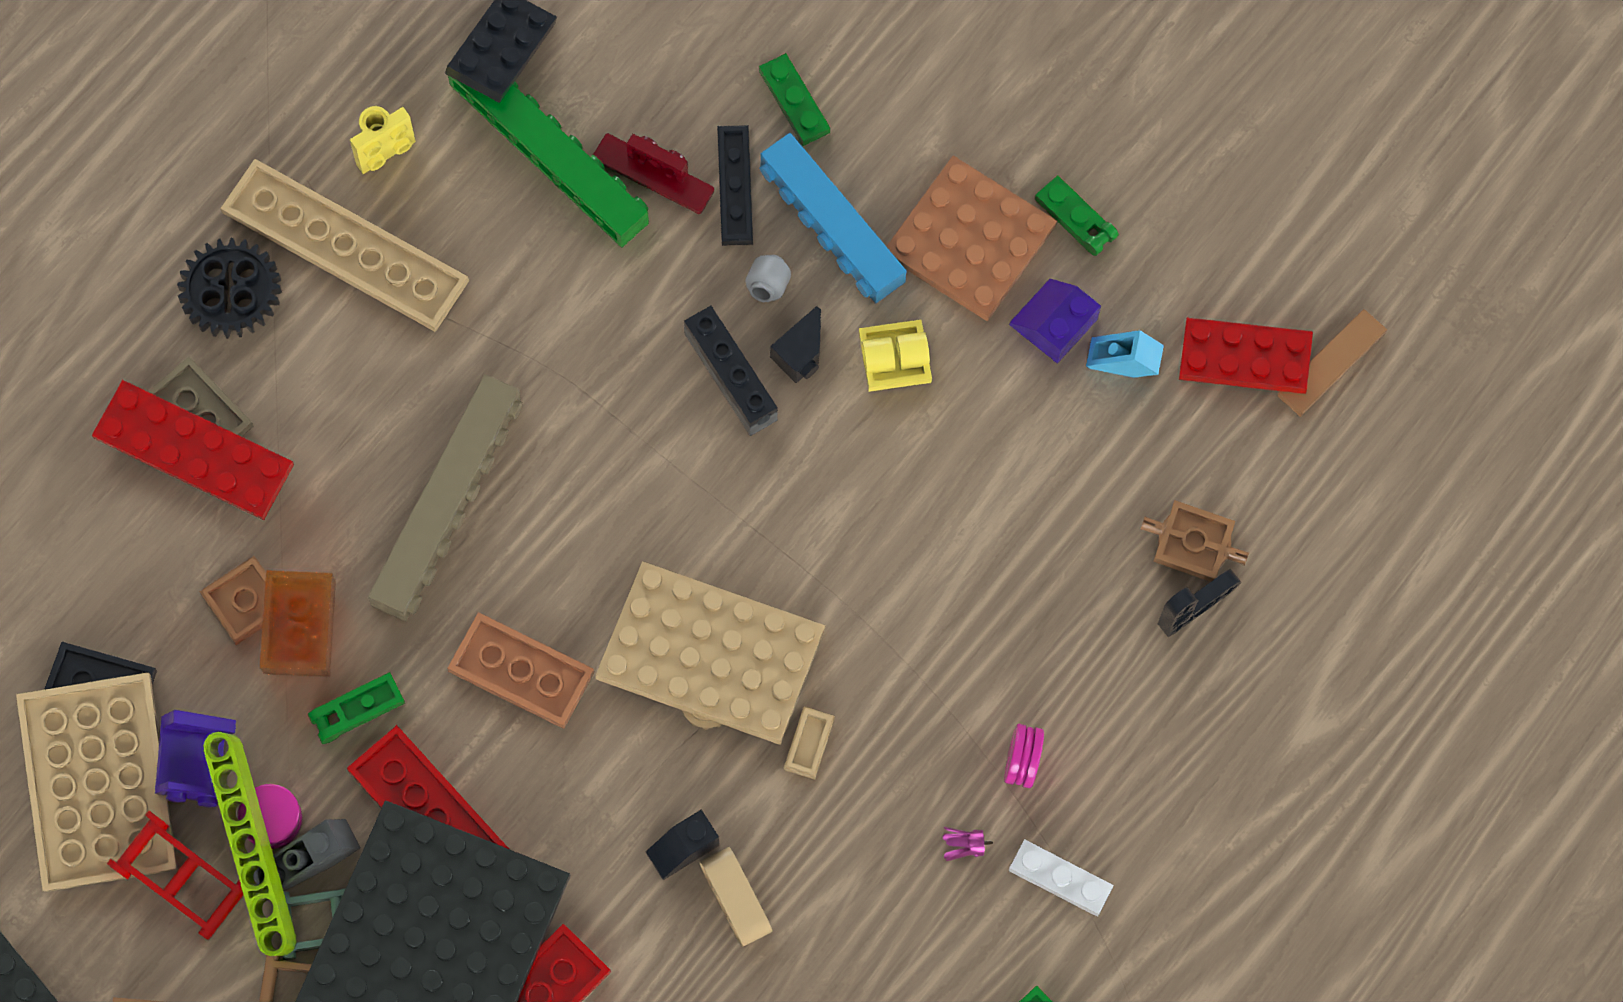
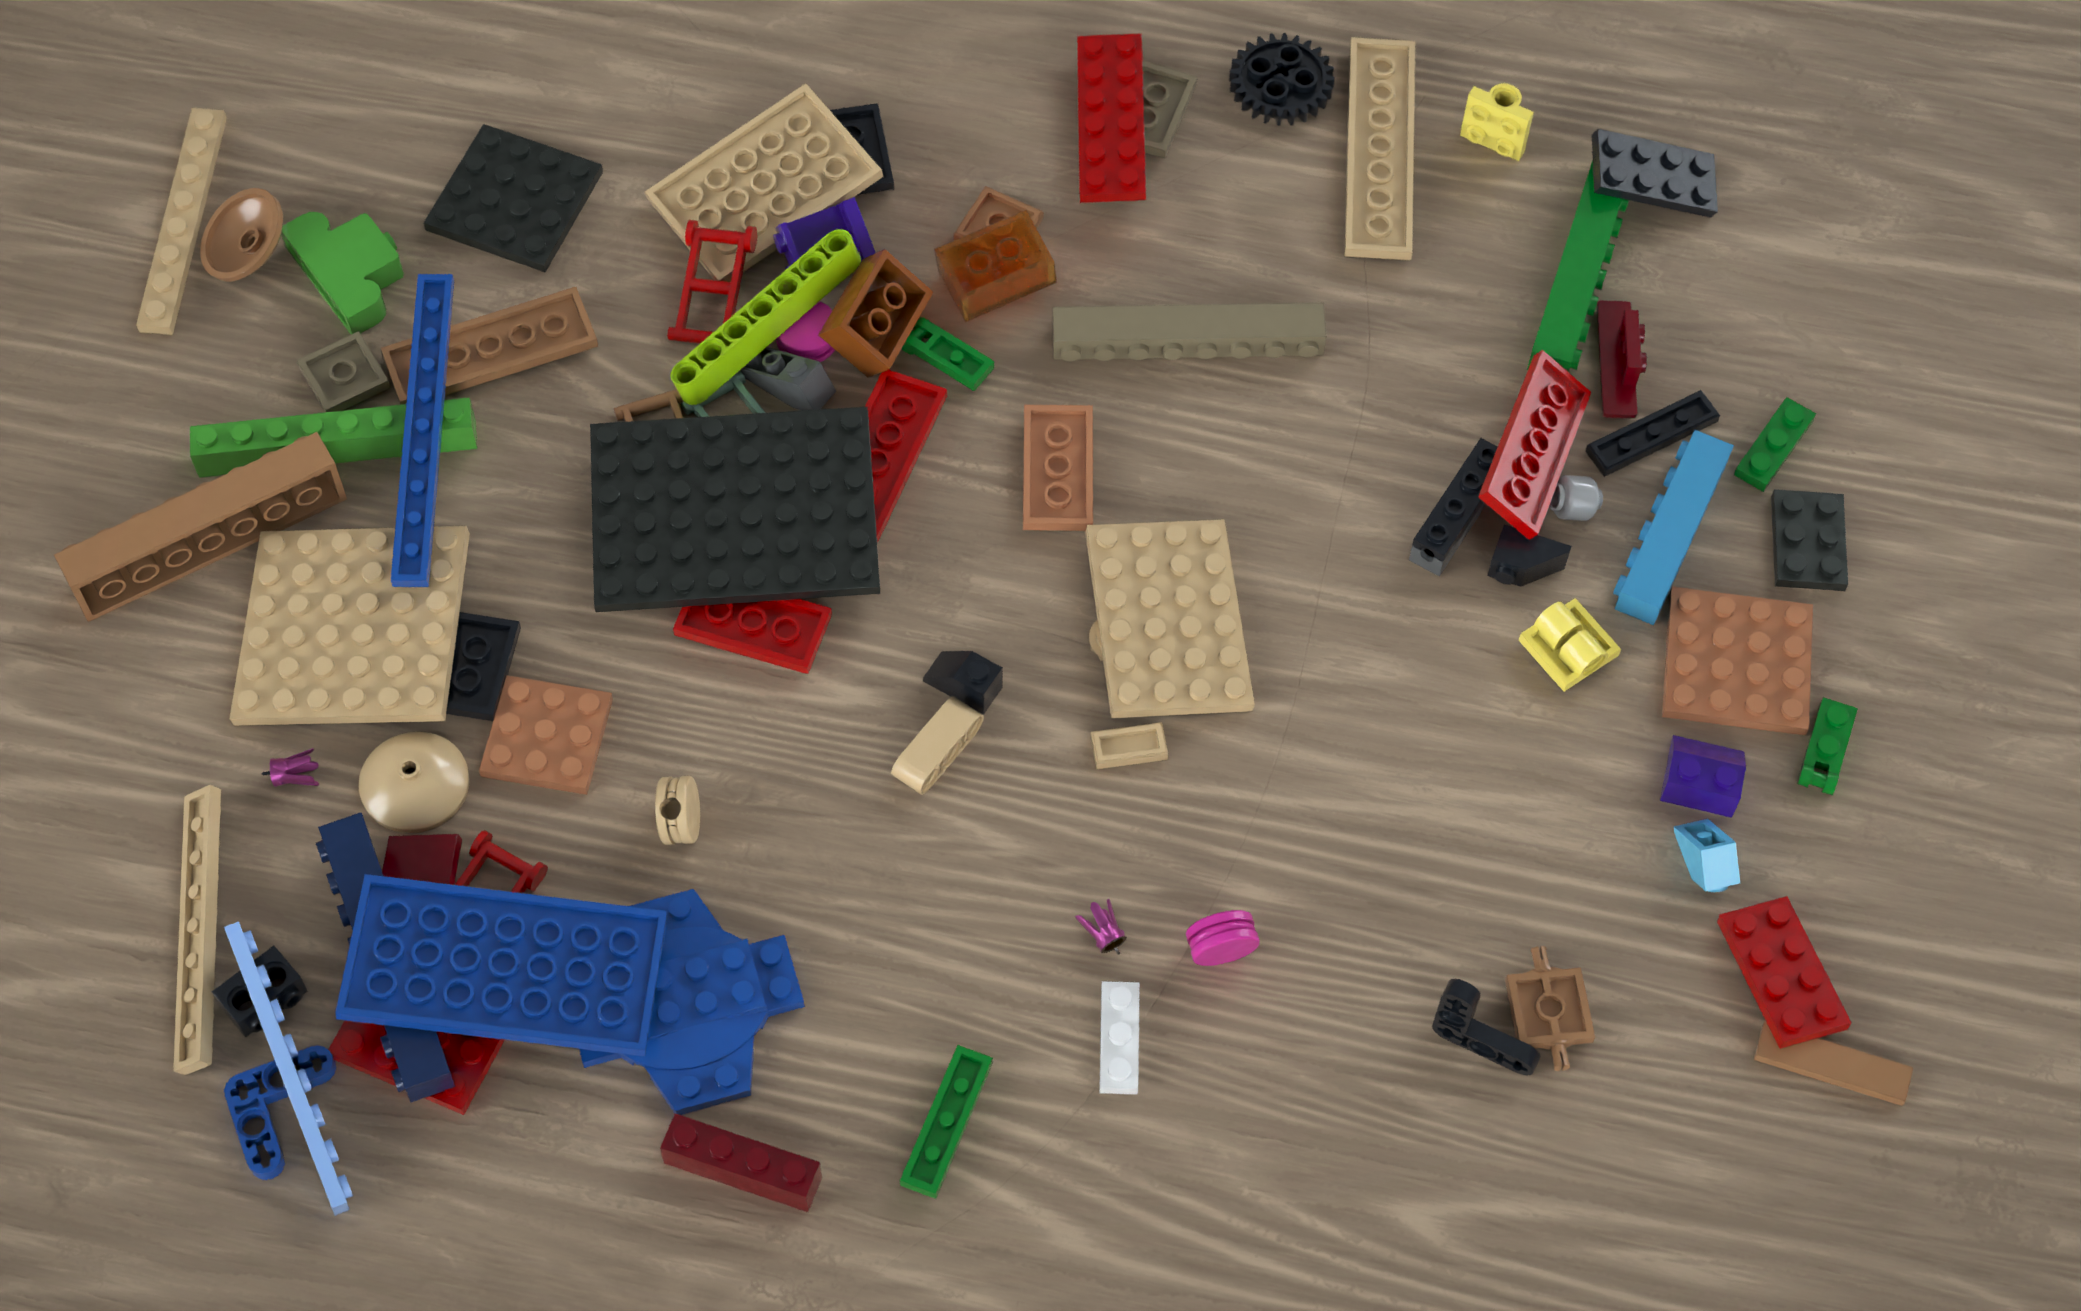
camera: 65 degrees right, 10 degrees down
(294, 748) = (876, 313): none -> dark orange brick
(713, 281) = (1535, 445): none -> red plate
(892, 124) = (1809, 540): none -> pearl dark grey plate

